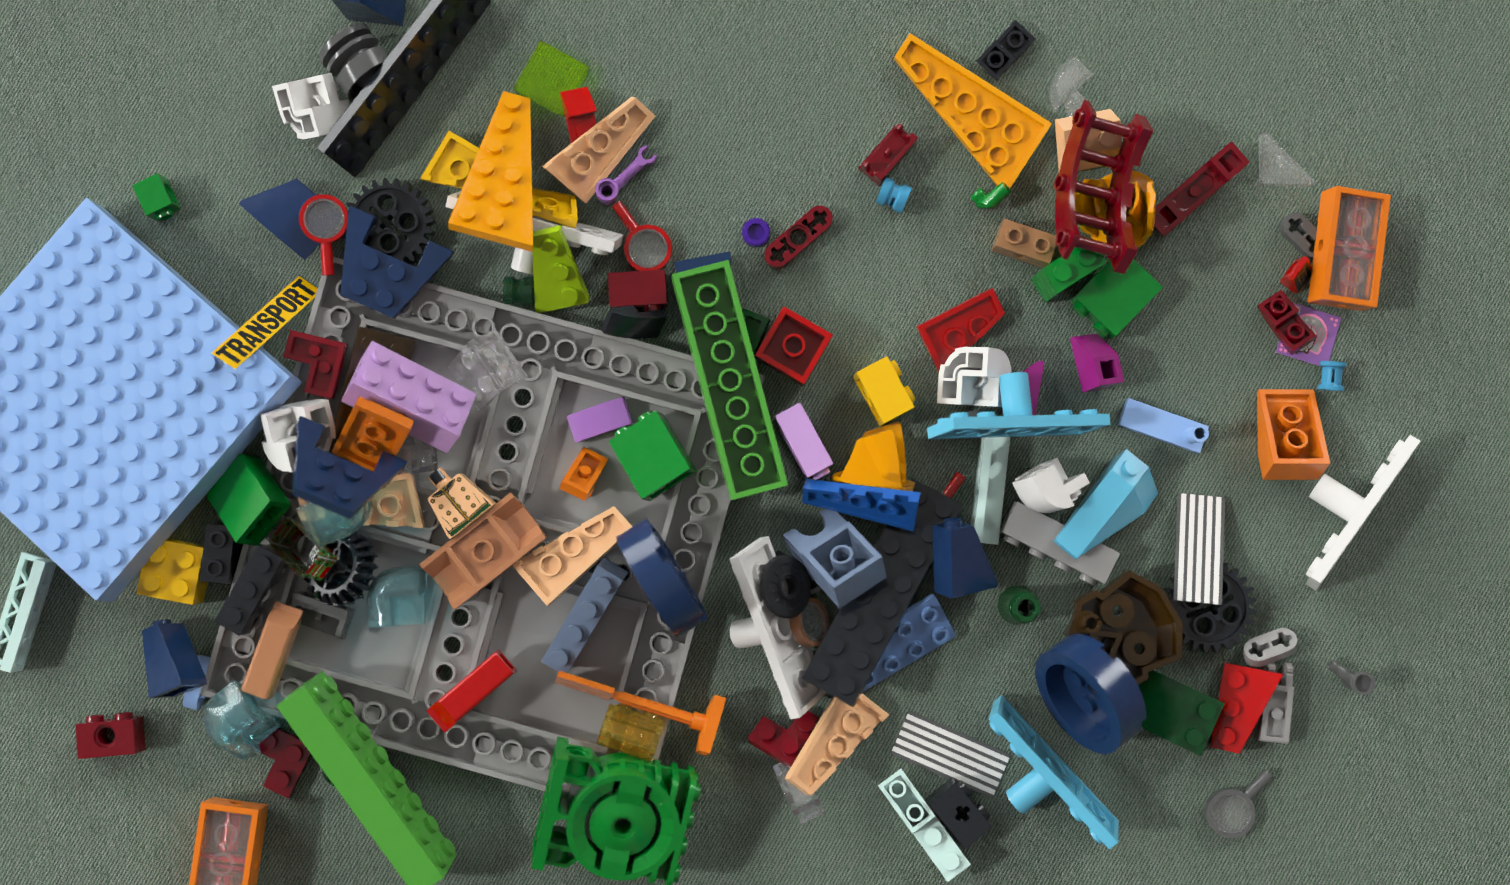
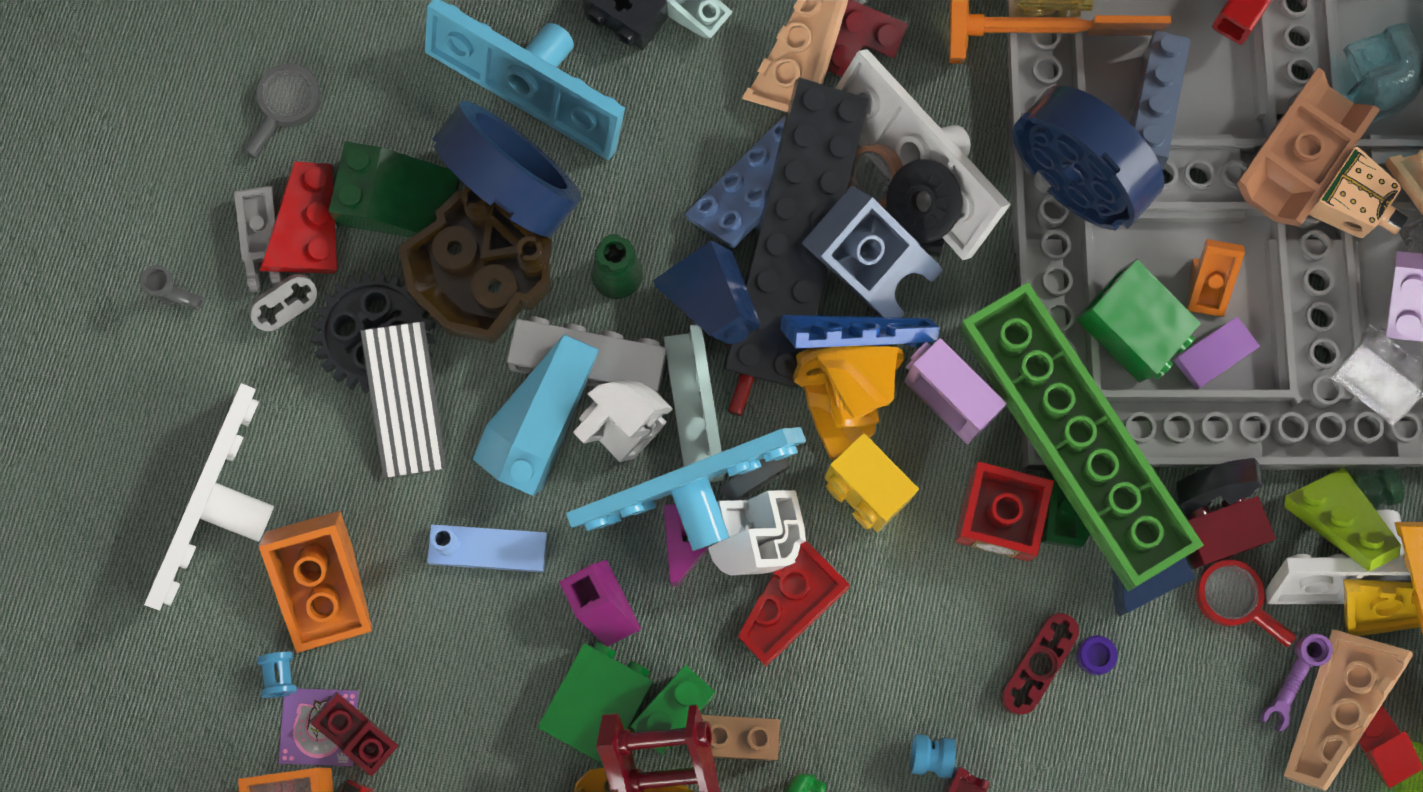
camera: 160 degrees right, 10 degrees down
(561, 563) = (1201, 166): light nougat wing -> none
(950, 754) = (653, 75): sticker -> none

